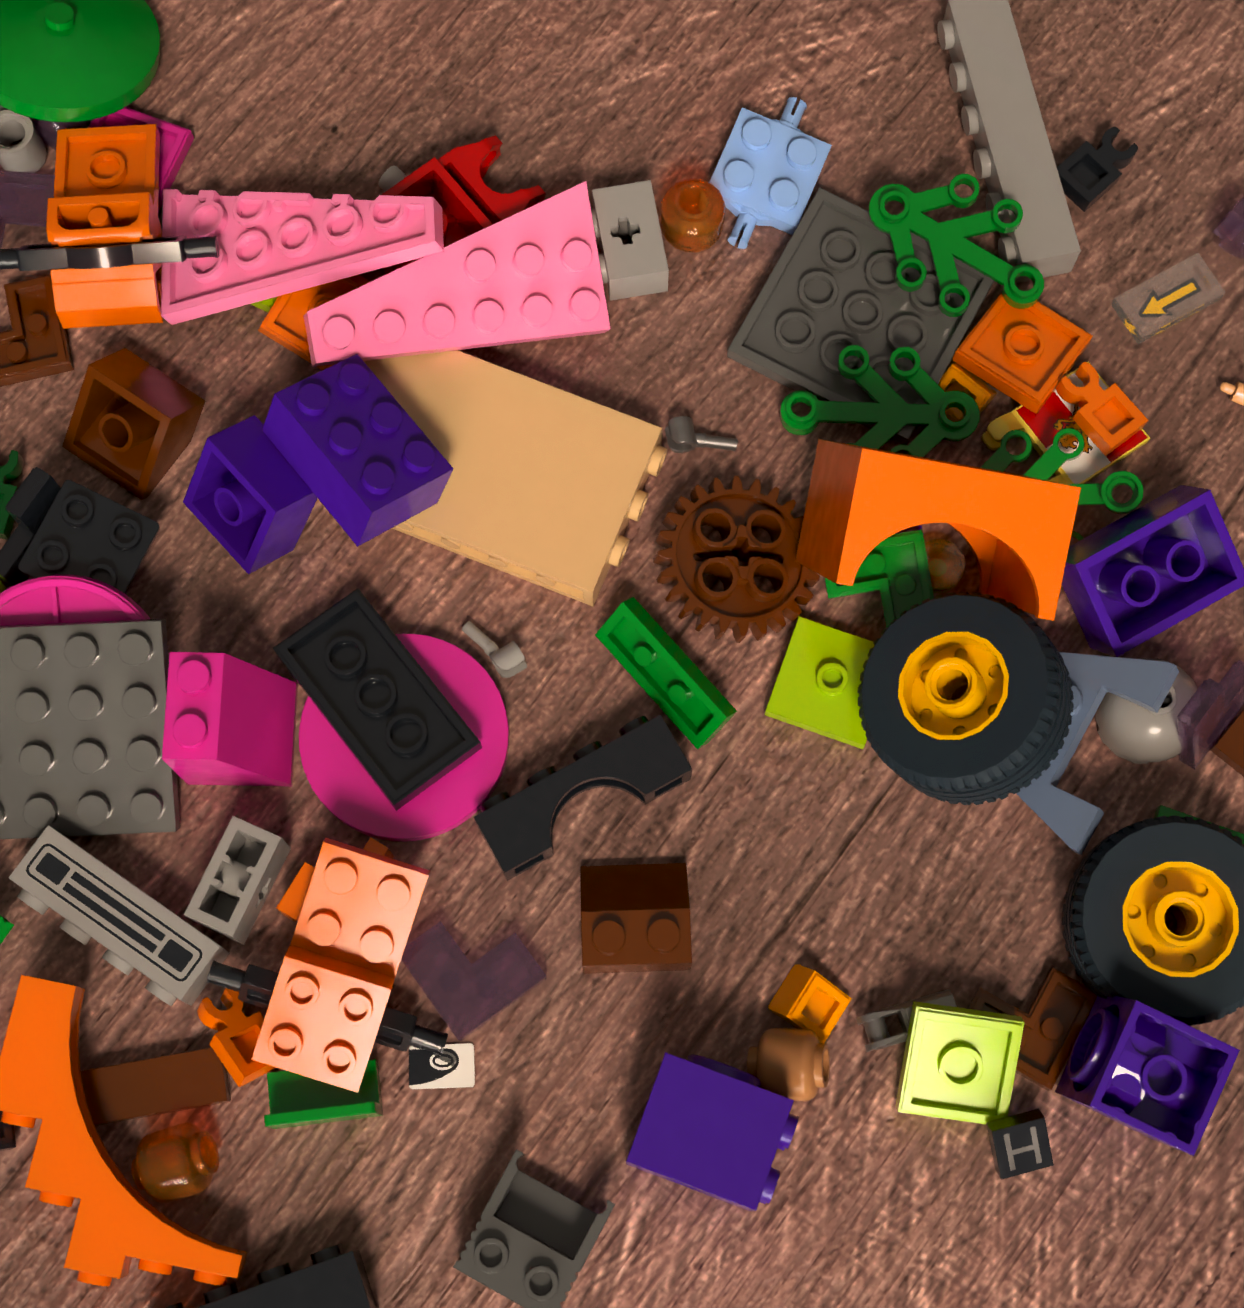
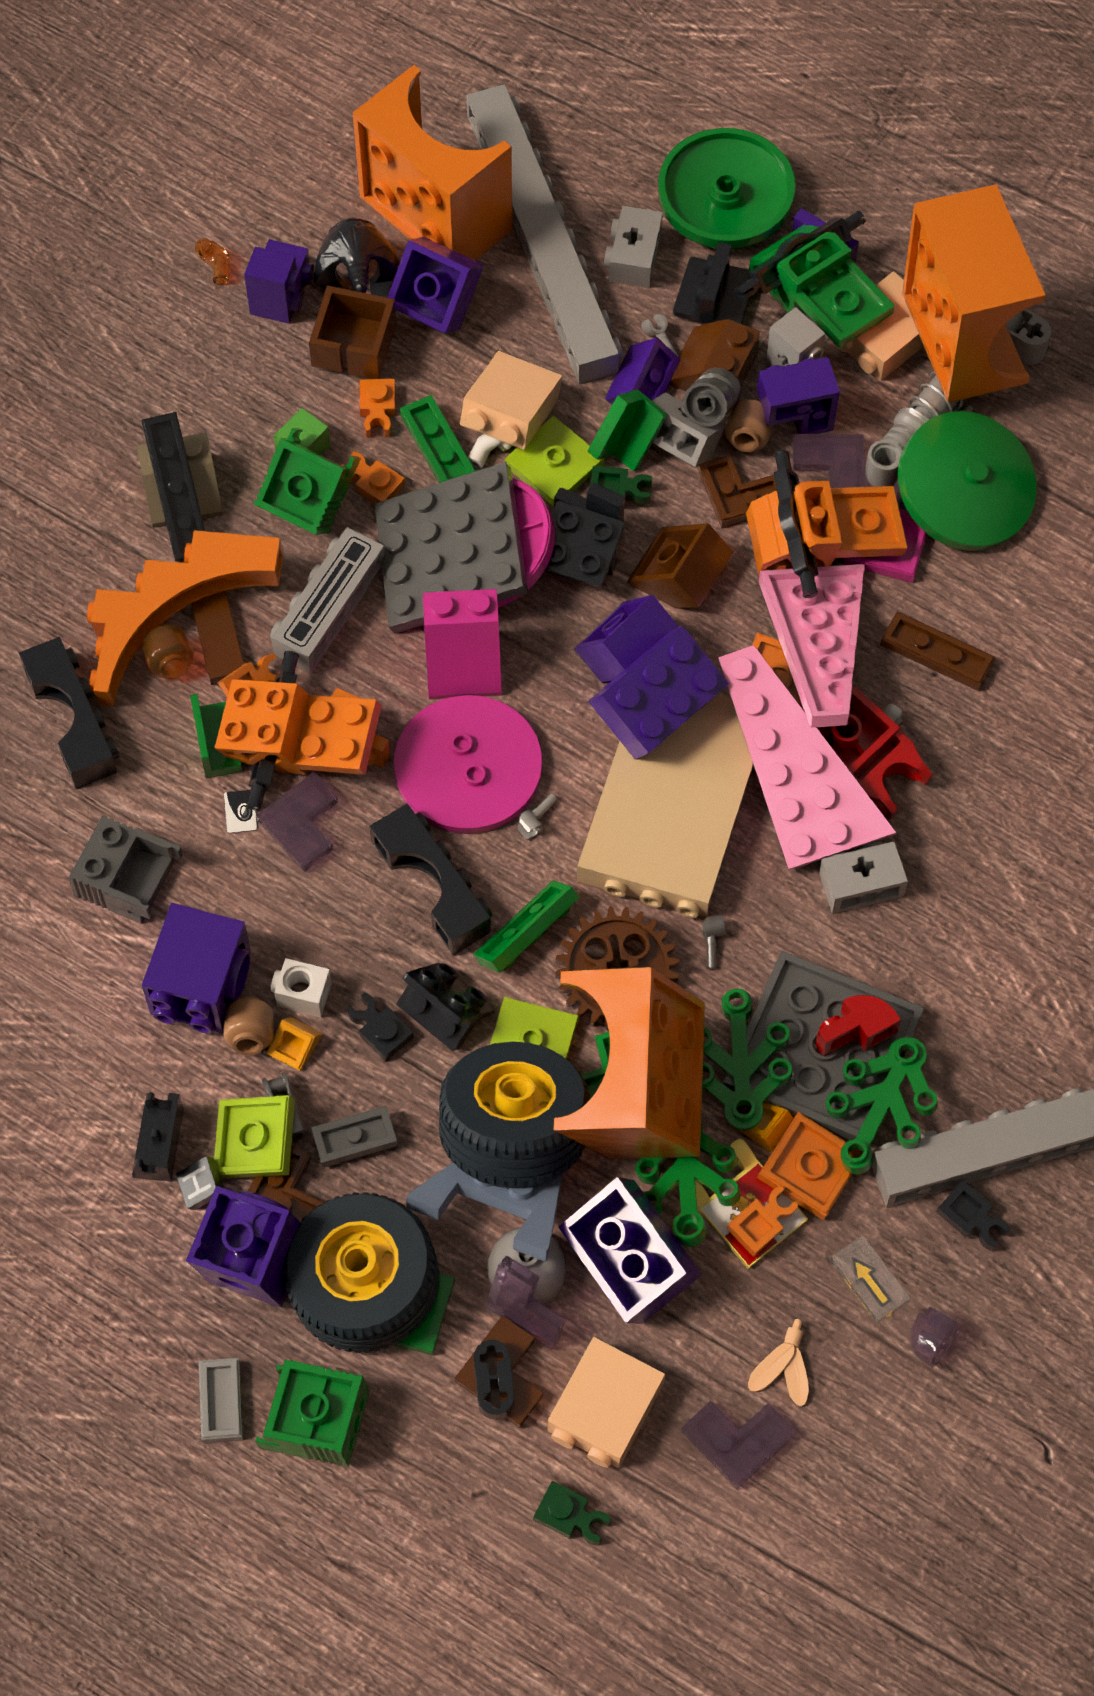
camera: 85 degrees right, 10 degrees down
(238, 880) = (354, 664): light grey brick -> none
(303, 118) = (937, 651): none -> reddish brown tile
(377, 699) = (489, 738): black tile -> none
(635, 918) = (346, 919): reddish brown slope -> none
(692, 215) = (886, 916): clear orange head -> none
(747, 965) = (308, 1001): none -> white brick
(768, 171) = (938, 973): light blue plate -> none
(773, 789) = (443, 1003): none -> black bracket
(800, 879) = (381, 1030): none -> black plate
(847, 256) = (862, 1019): none -> red brick
(949, 1204) = (158, 1138): none -> black hinge
(959, 925) = (354, 1136): none -> dark grey plate

